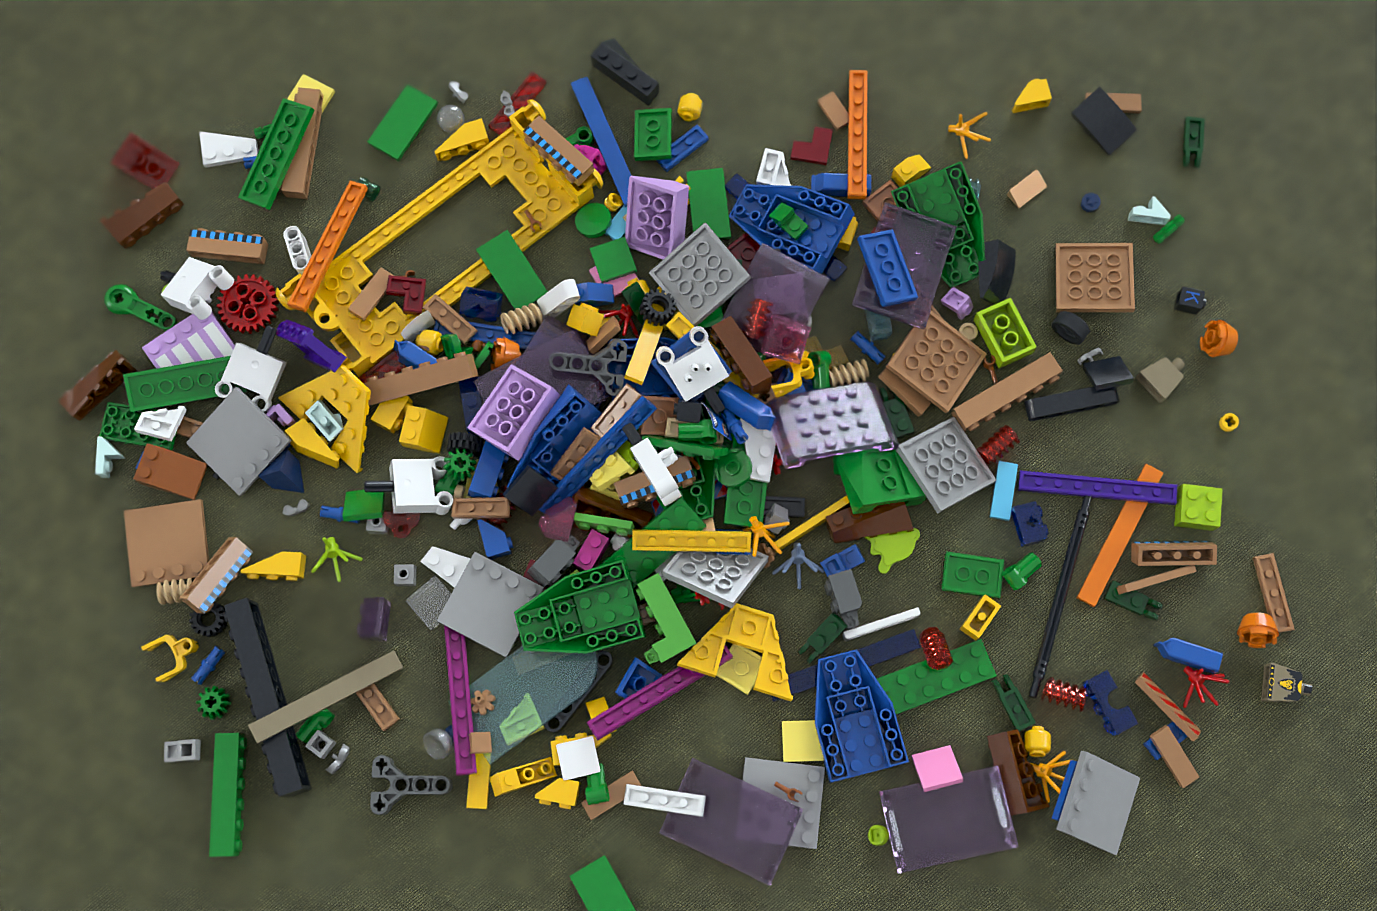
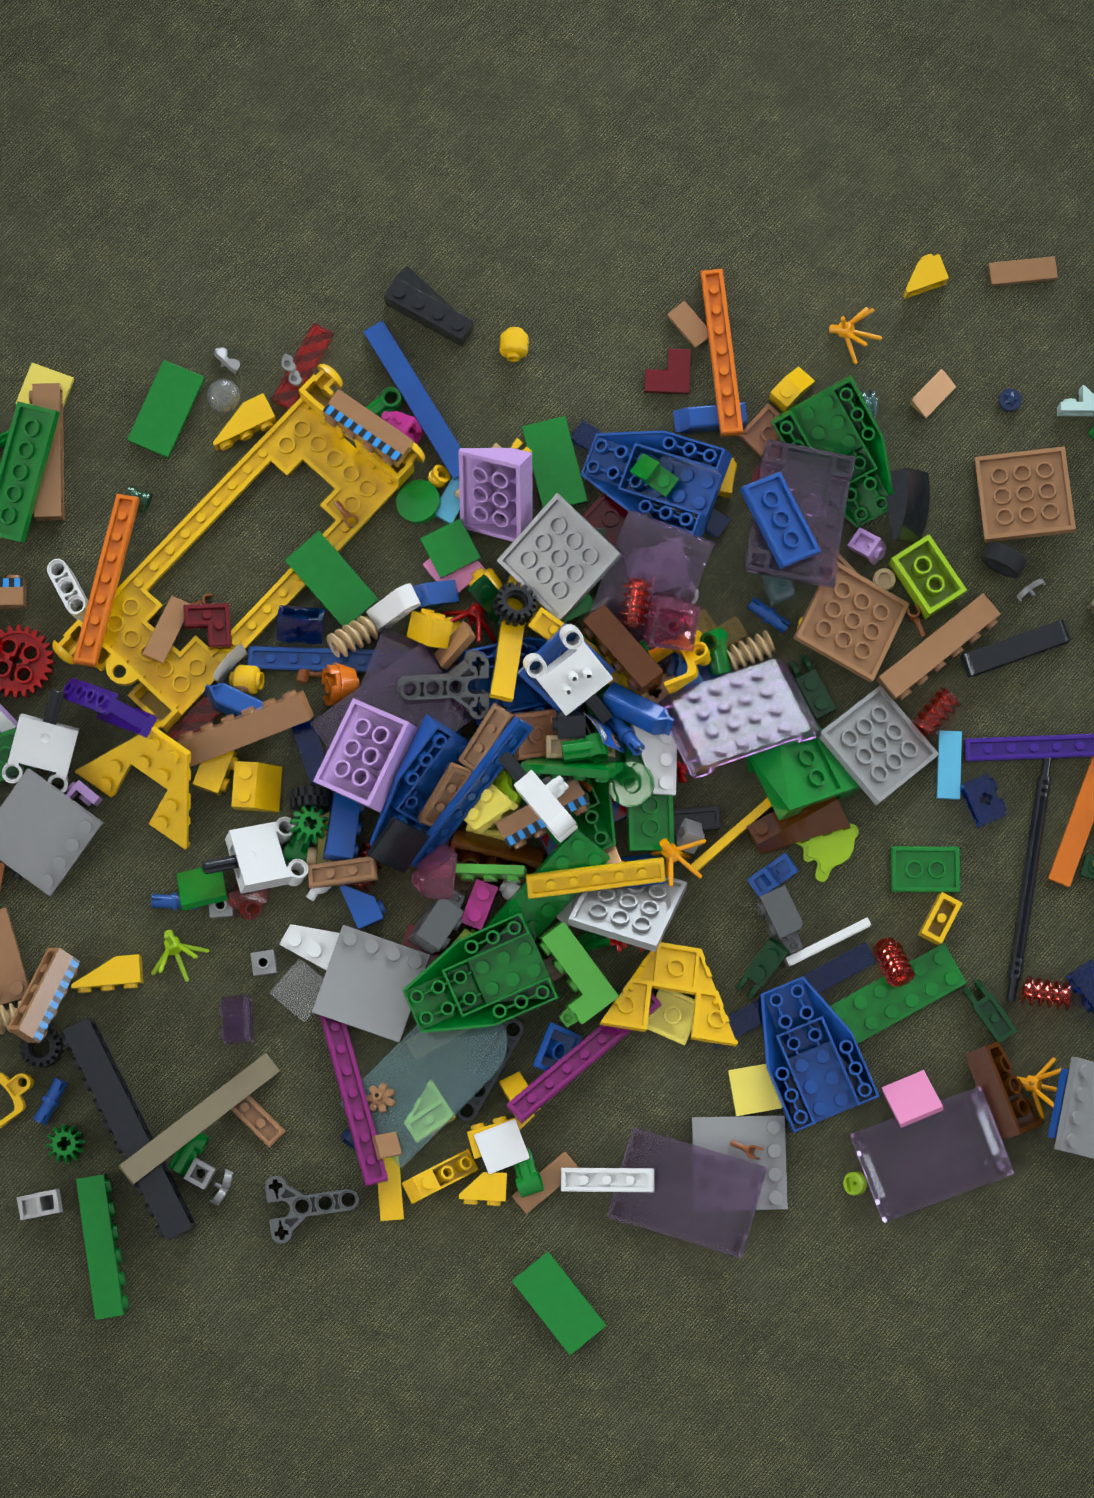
camera: 15 degrees left, 5 degrees up
(284, 473) = (99, 862): dark blue slope -> none
(290, 511) = (127, 898): light grey piece -> none
(309, 443) = (125, 823): yellow slope -> none
(325, 420) = (139, 793): light aqua slope -> none
(438, 743) = (336, 1153): clear hair -> none
(450, 319) = (266, 648): medium nougat tile -> none
(453, 345) = (277, 683): green slope -> none
(480, 358) = (314, 686): green tile -> none
(653, 134) = (474, 385): green plate -> none
(684, 147) = (511, 396): blue tile -> none
(767, 551) = (686, 876): medium nougat plant -> none
(773, 169) = (626, 411): white wing -> none
(797, 557) = (721, 878): sand blue plant -> none
(905, 392) = (819, 664): medium nougat tile -> none
(1017, 574) = (976, 862): green piece -> none
(1037, 741) = (1022, 1051): yellow head -> none
(1103, 121) = (1014, 298): black slope -> none
(1108, 373) = (1053, 608): black tile -> none

